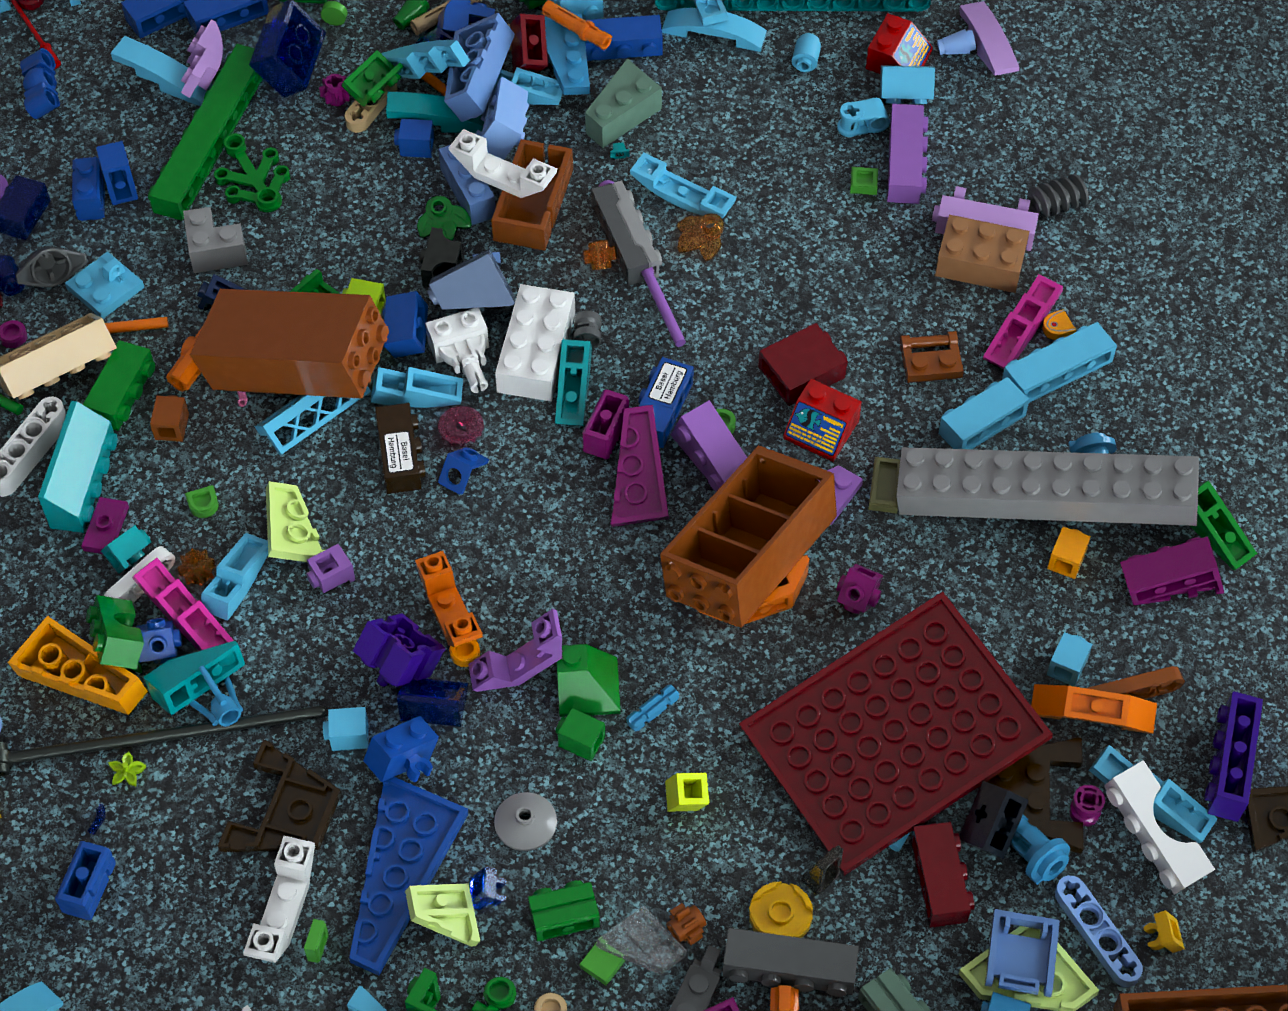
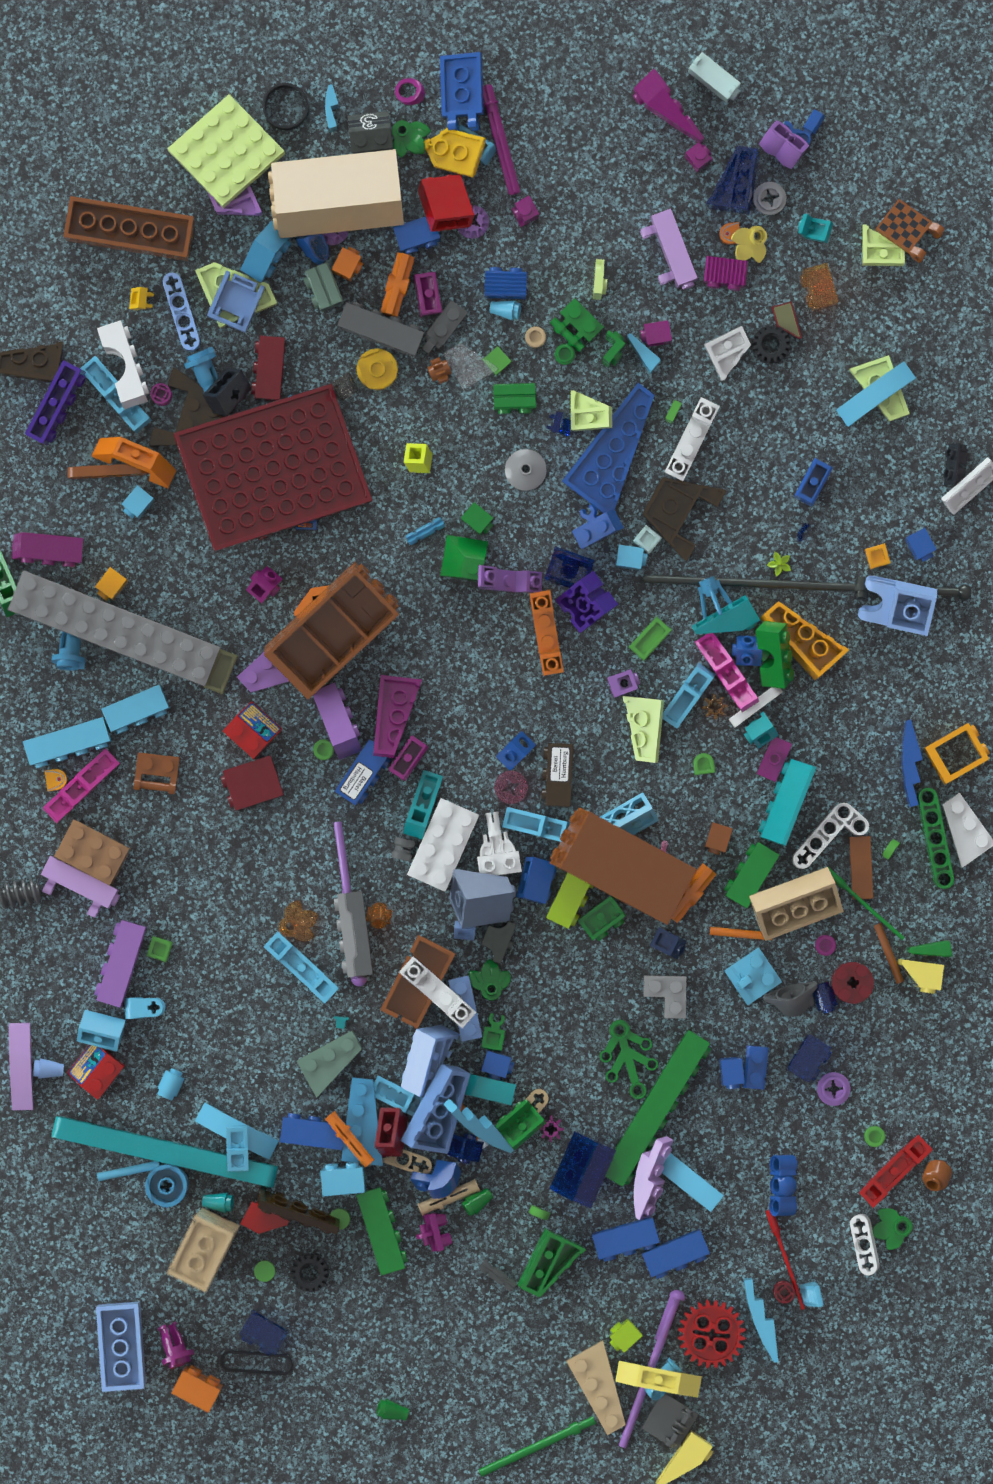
camera: 170 degrees left, 30 degrees up
(302, 637) = (650, 638): none -> bright green tile
(328, 762) = (647, 539): none -> light aqua tile
(425, 166) = (492, 1035): none -> green plate

